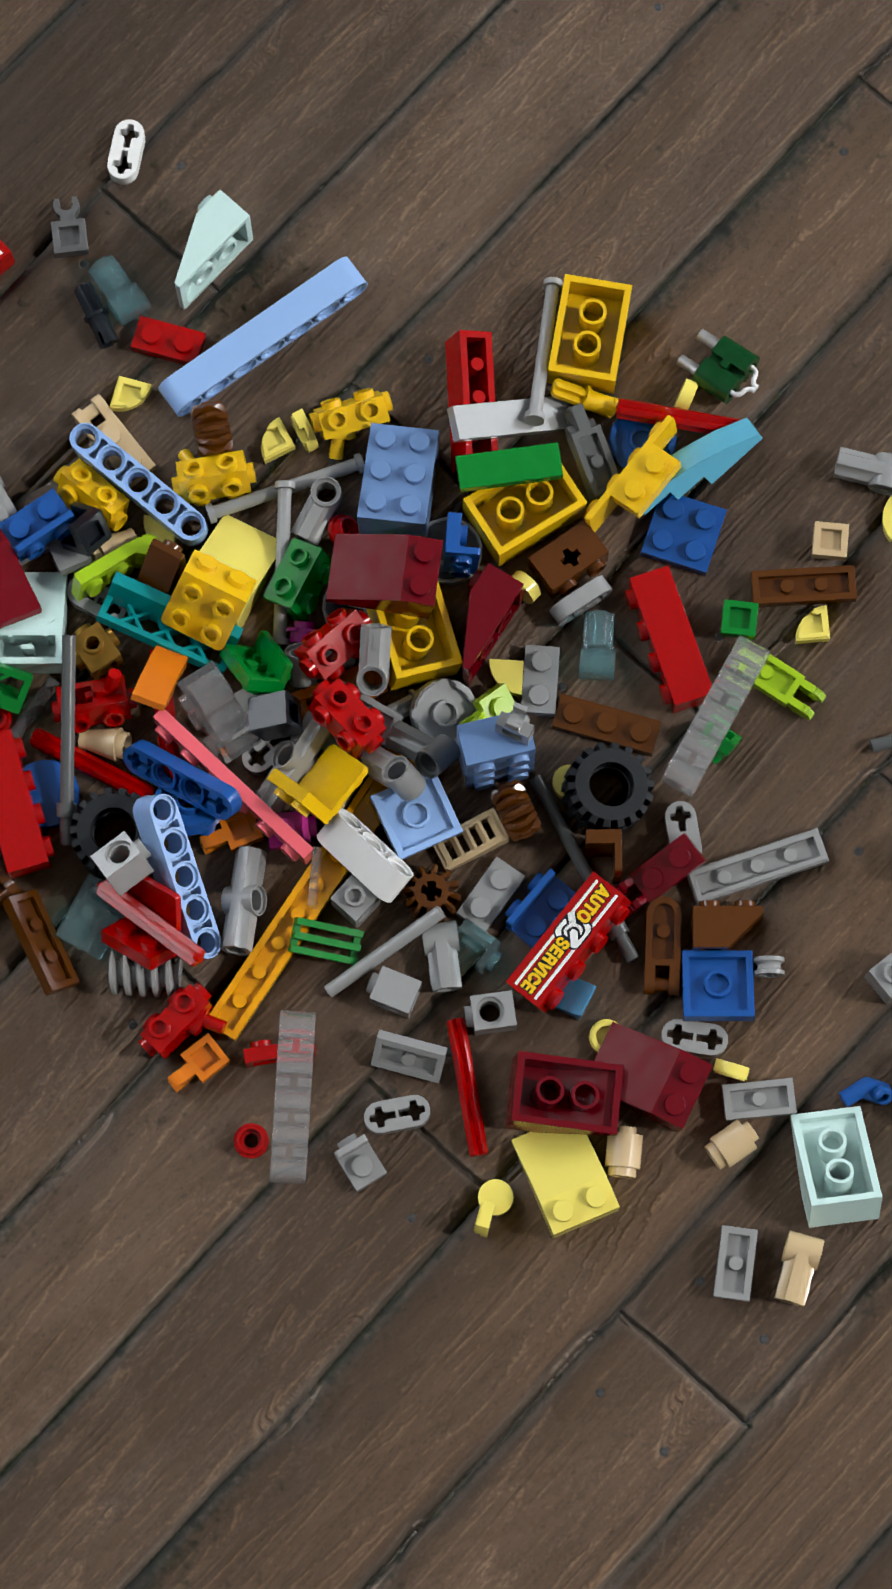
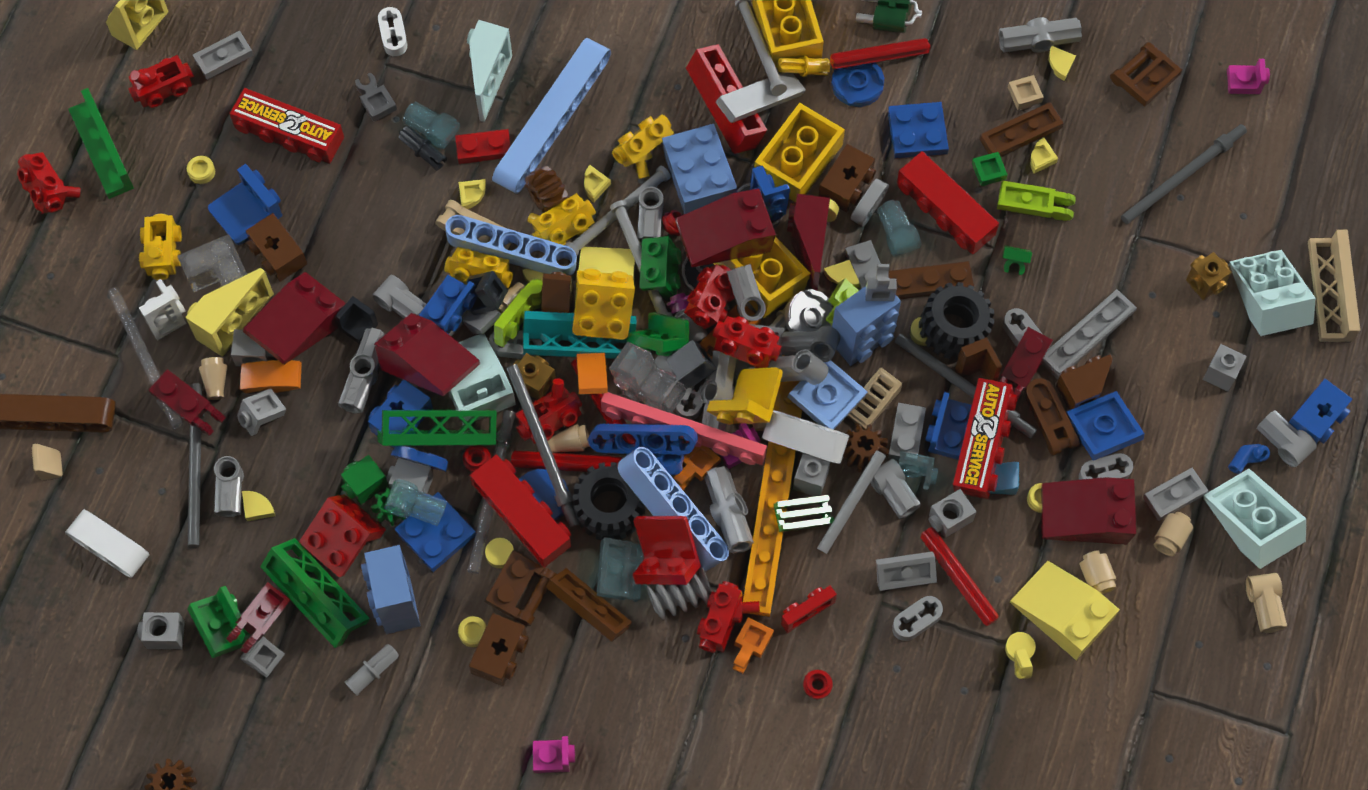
camera: 25 degrees left, 10 degrees down
(123, 862) = (630, 512): light grey brick -> none
(152, 924) = (669, 549): axle -> none
(292, 1097) = (837, 634): clear beam -> none
(304, 430) = (613, 166): light yellow tile -> none
(315, 877) = (778, 467): clear piece -> none
(359, 1161) = (906, 664): light grey bracket -> none
(394, 991) = (872, 529): light grey brick -> none
(509, 467) = (778, 126): green tile -> none
(515, 810) = (898, 361): reddish brown gear -> none
(563, 1095) = (1034, 548): dark red slope -> none
(589, 451) = (827, 99): dark grey hinge -> none
(642, 479) = (874, 102): yellow bracket -> none
(686, 394) = (874, 36): light yellow tile -> none
(710, 457) = (909, 72): medium azure slope -> none
(715, 716) = (1011, 236): clear beam -> none
(731, 1069) = (1146, 480): light yellow tile -> none
(735, 1263) = (1220, 618): light grey plate -> none
(768, 966) = (1133, 397): light grey bush -> none

